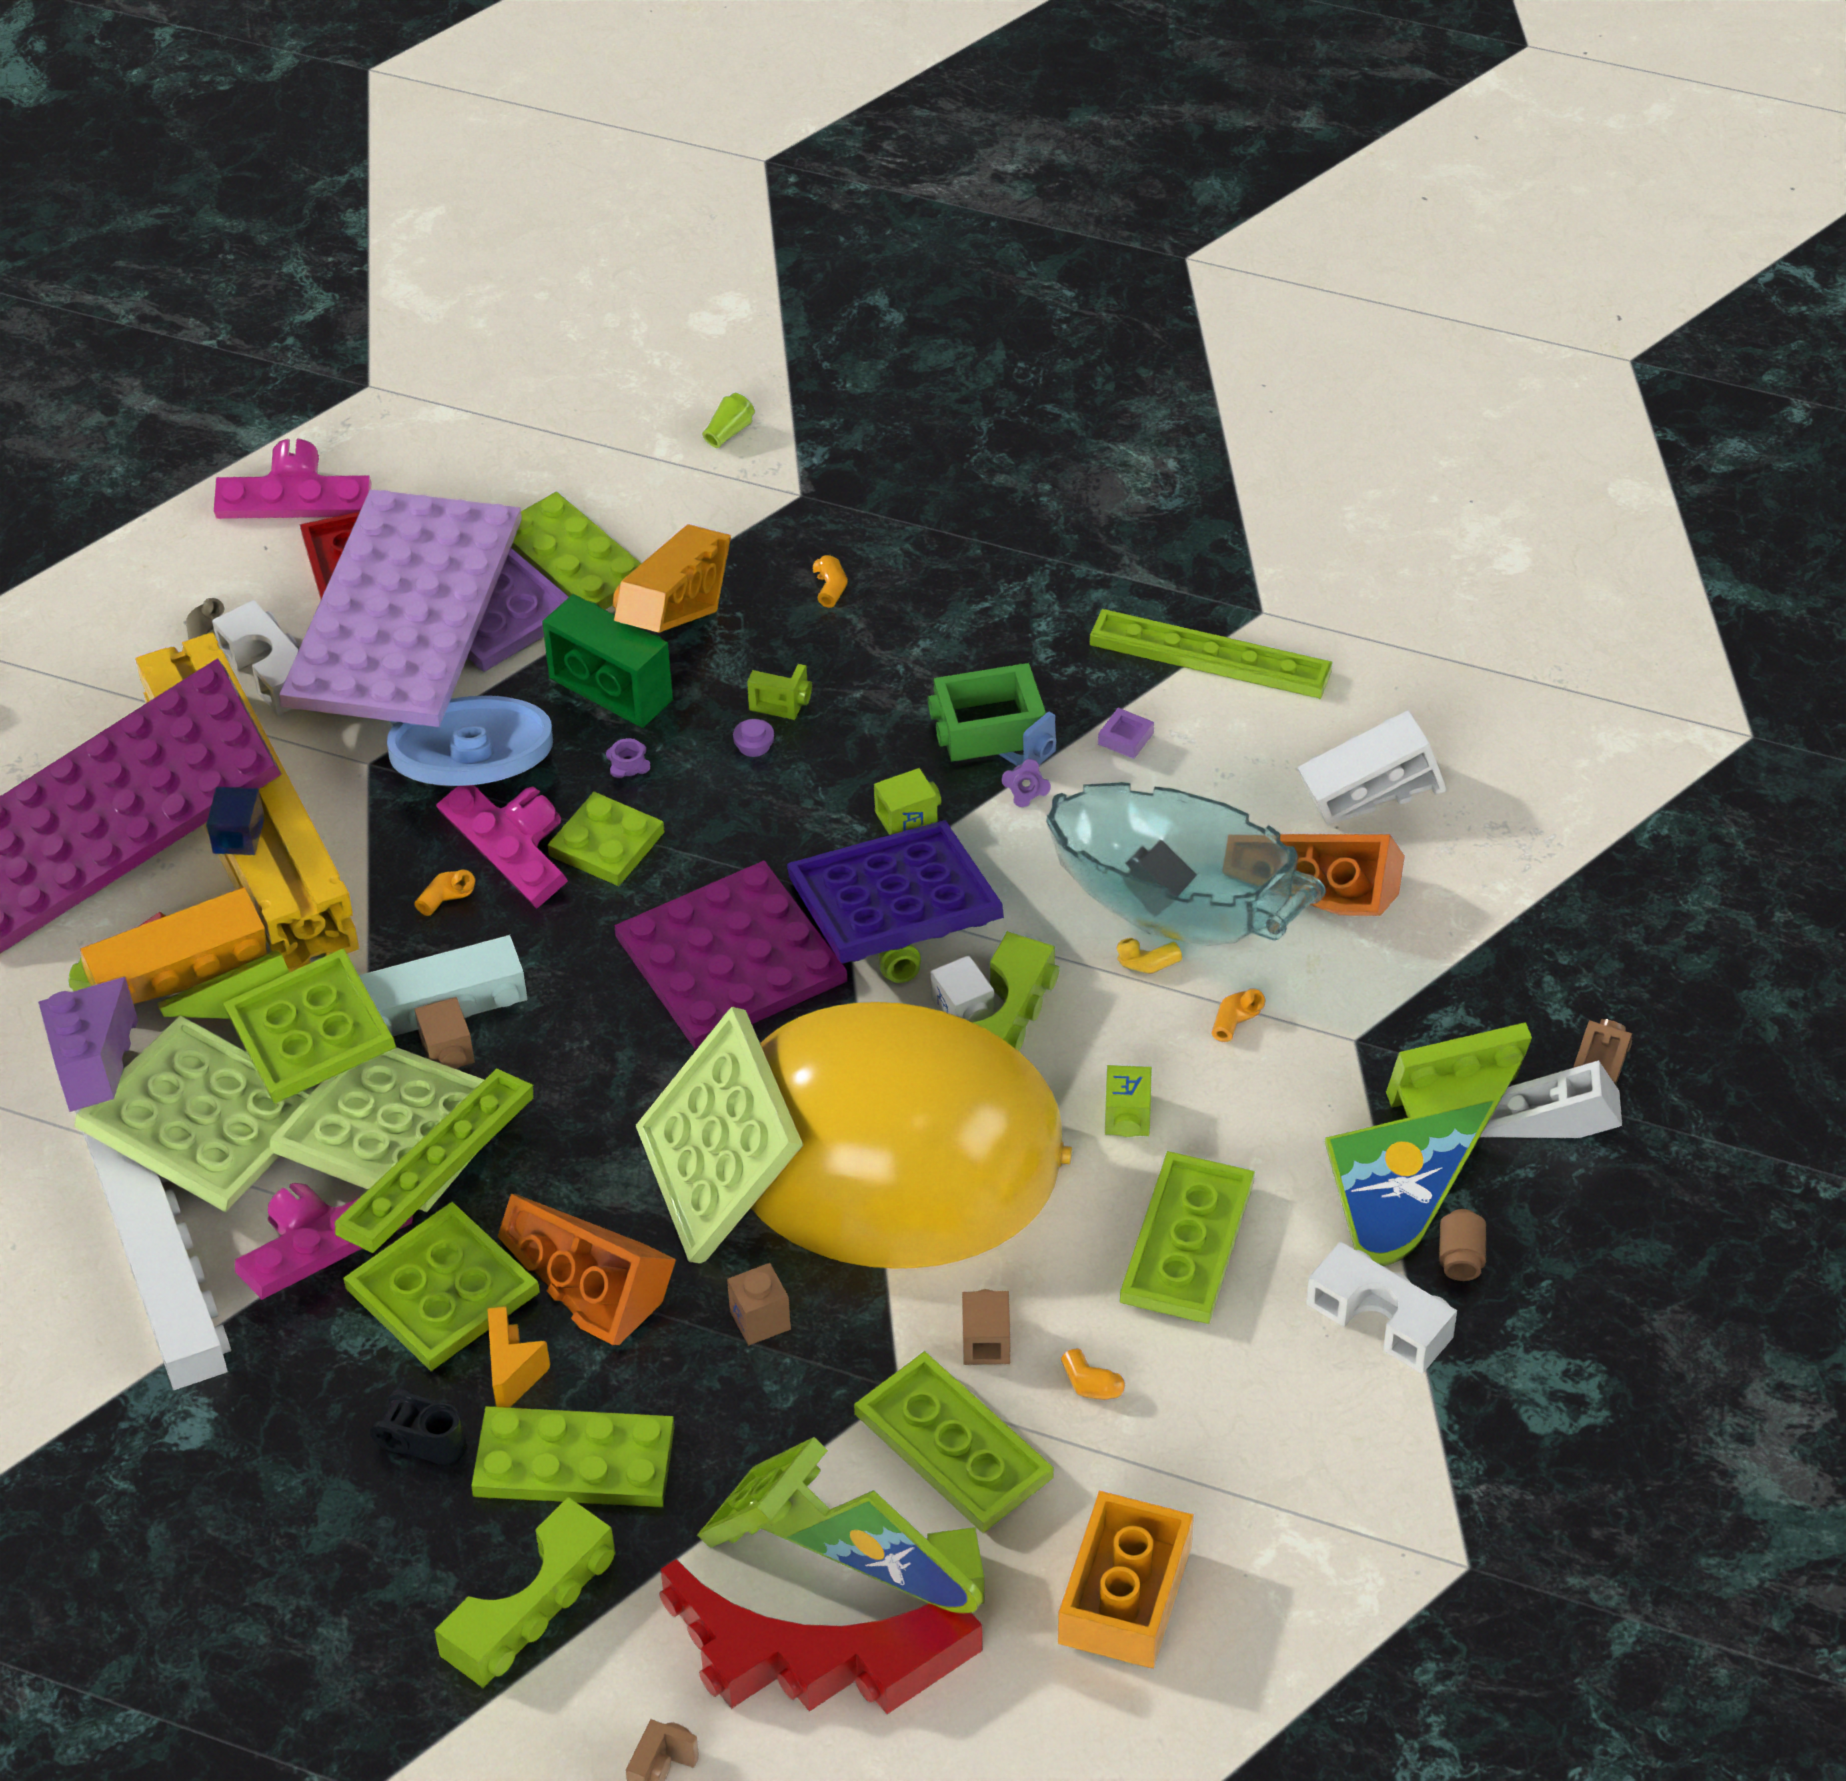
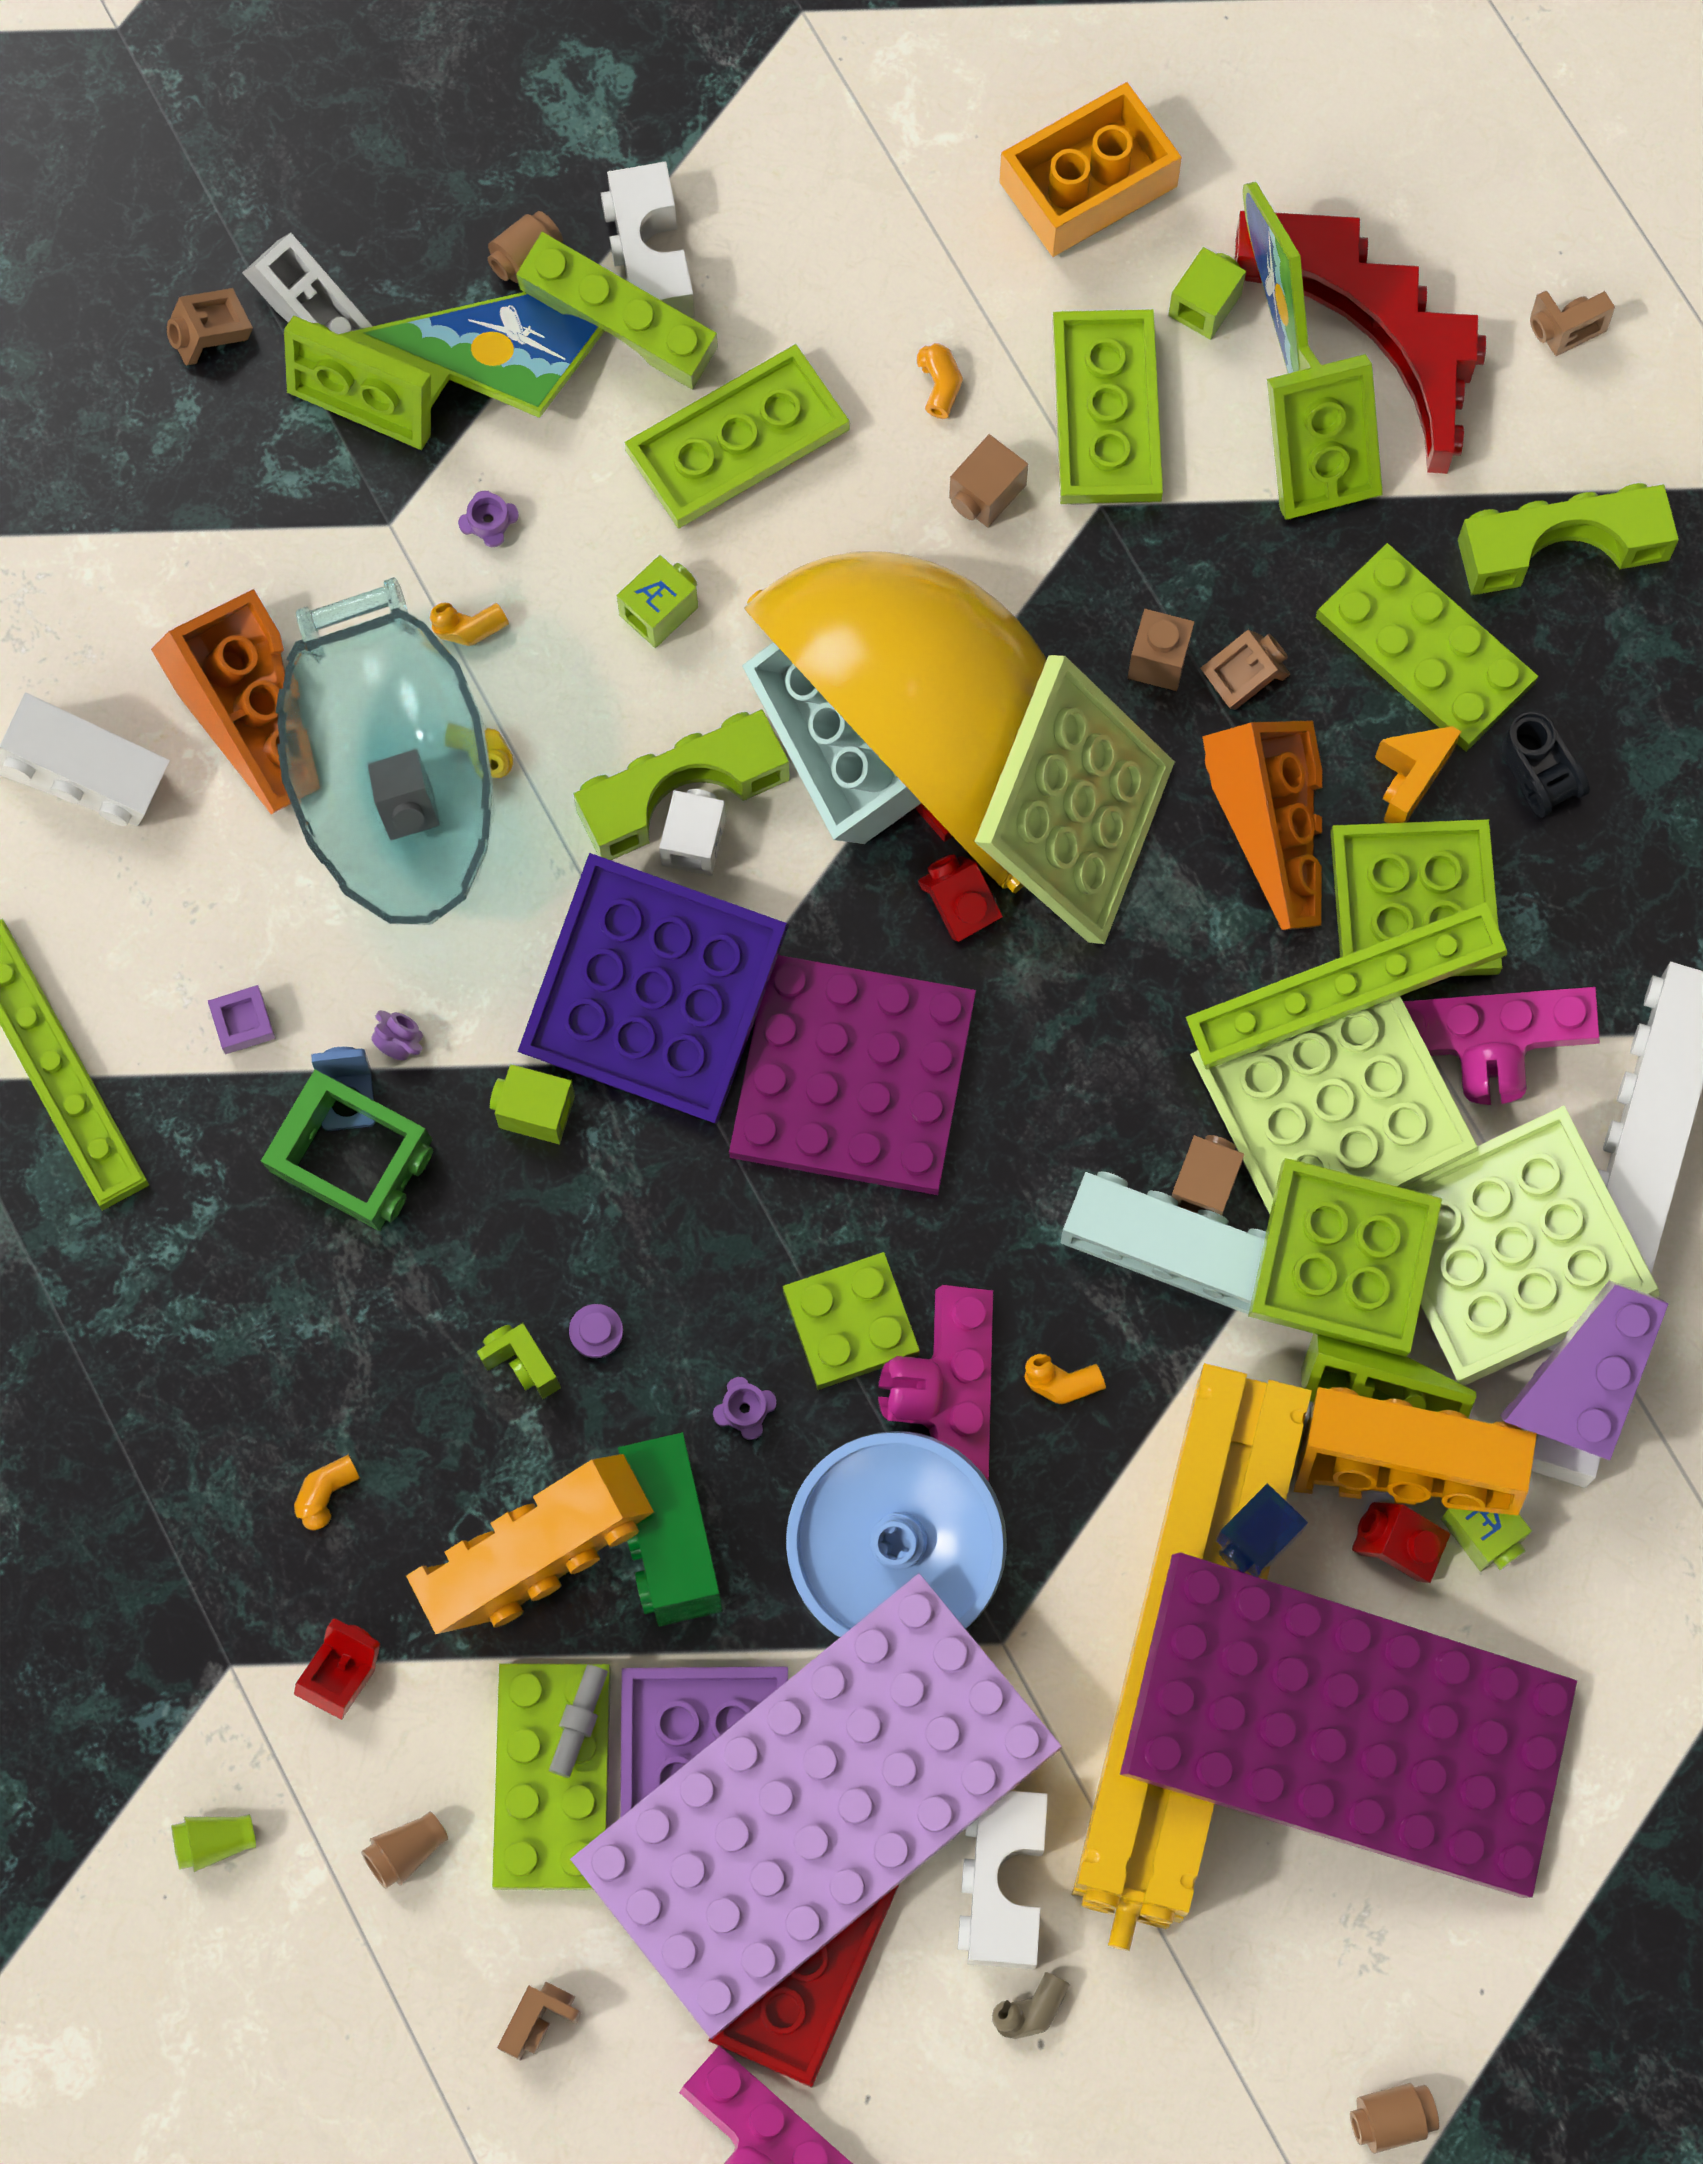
camera: 140 degrees left, 25 degrees up
(476, 464) = (527, 2026): none -> medium nougat bracket
(576, 562) = (578, 1721): none -> light grey bar
(622, 473) = (403, 1849): none -> medium nougat cone
(686, 1345) = (1246, 667): none -> medium nougat bracket
(735, 512) = (339, 1669): none -> red bracket
(1293, 1068) = (485, 504): none -> medium lavender plate
(1295, 1239) = (643, 322): none -> lime arch

